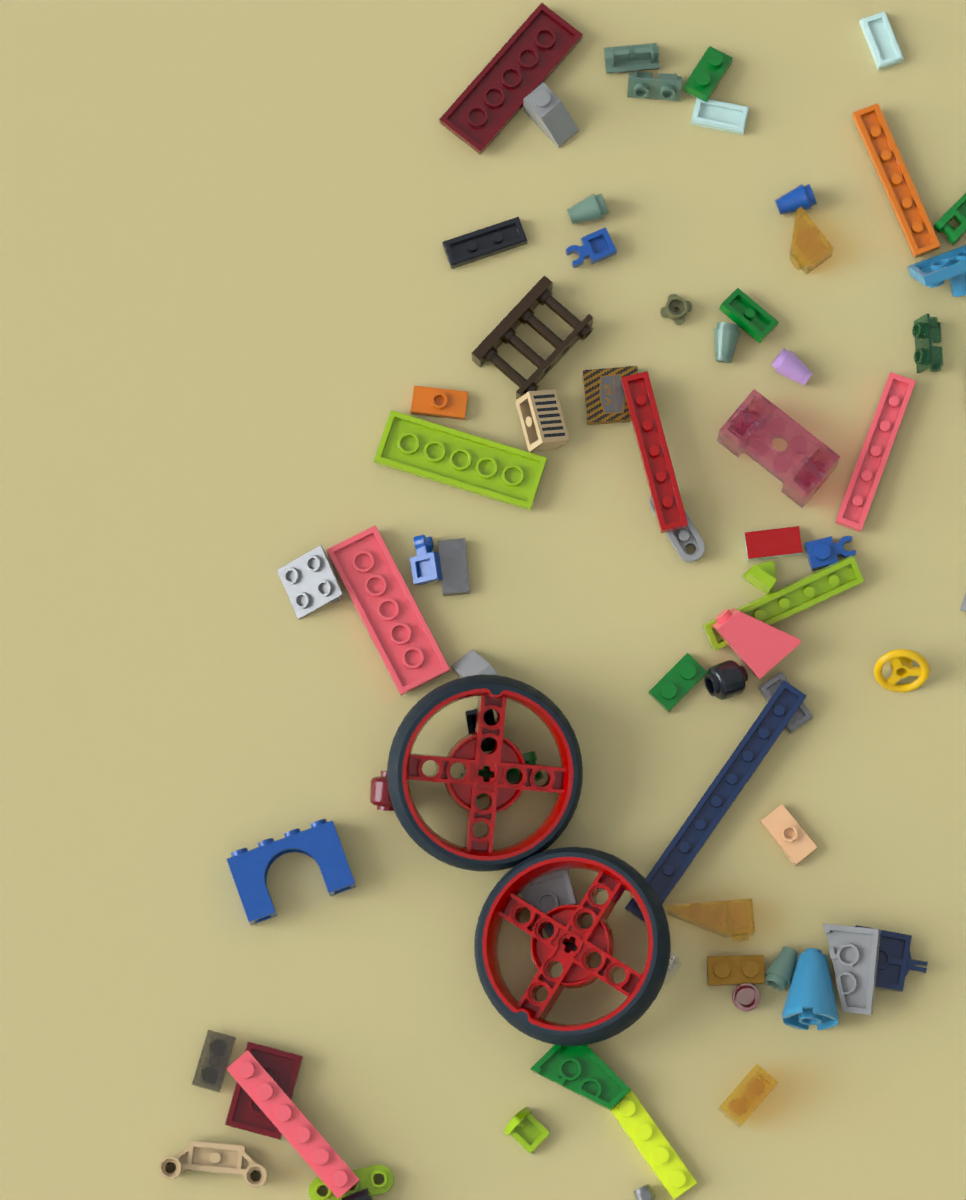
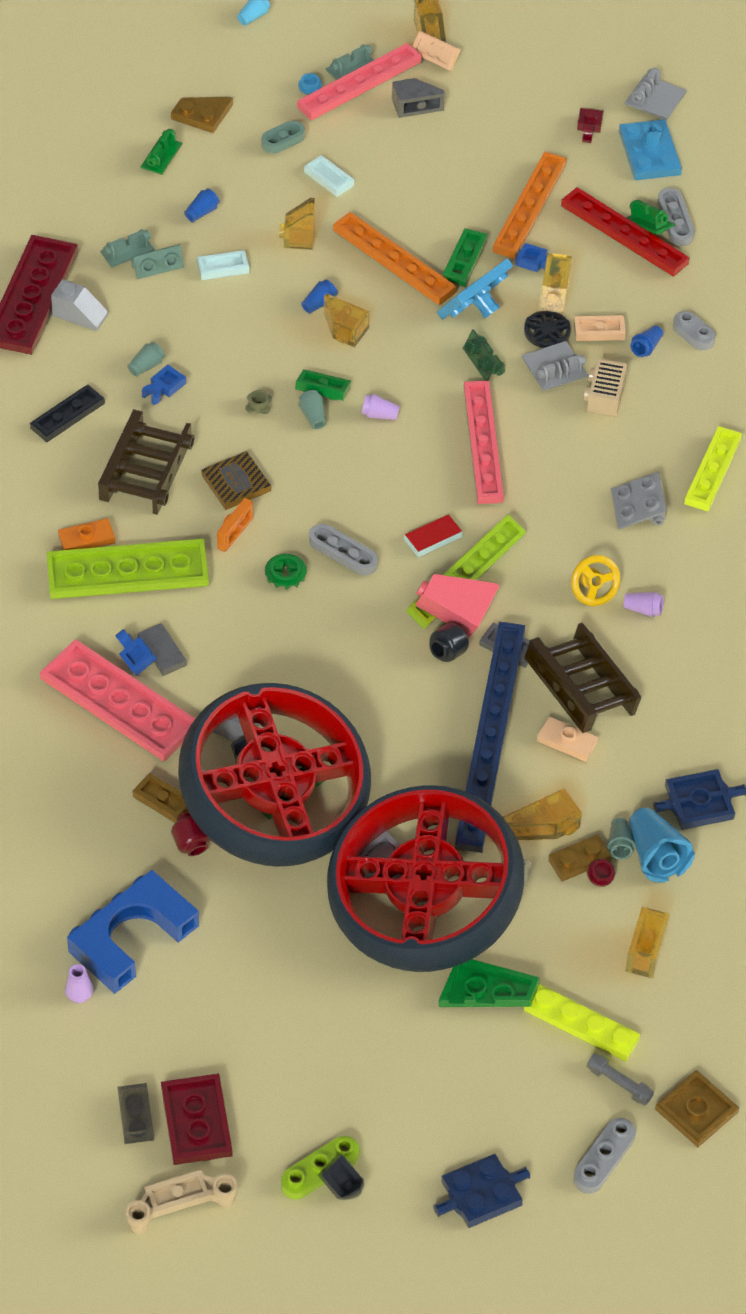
camera: 30 degrees left, 25 degrees down
(224, 914) = (78, 984): none -> lavender cone
(293, 1124) = (240, 1130): coral plate -> none
(310, 582) = (37, 703): hinge -> none
(377, 735) = (160, 797): none -> pearl gold plate
(526, 1130) = (461, 1056): lime tile -> none
(542, 420) = (185, 512): tan brick -> none
(584, 451) = (234, 524): none -> orange plate
(604, 515) = (295, 566): none -> green gear
(654, 452) = (296, 499): red plate -> none
(677, 682) = (407, 663): green plate -> none
(708, 74) = (198, 239): green plate -> none
(731, 31) = (203, 204): none -> blue cone
(762, 576) = (437, 559): lime tile -> none
(799, 467) = (428, 456): clear pink plate -> none
(811, 793) = (571, 695): none -> dark brown fence
(815, 104) = (299, 226): none -> clear yellow slope
(824, 552) = (479, 524): blue plate -> none
(855, 965) = (683, 804): light grey wing -> none
(939, 714) = (645, 603): none -> lavender cone

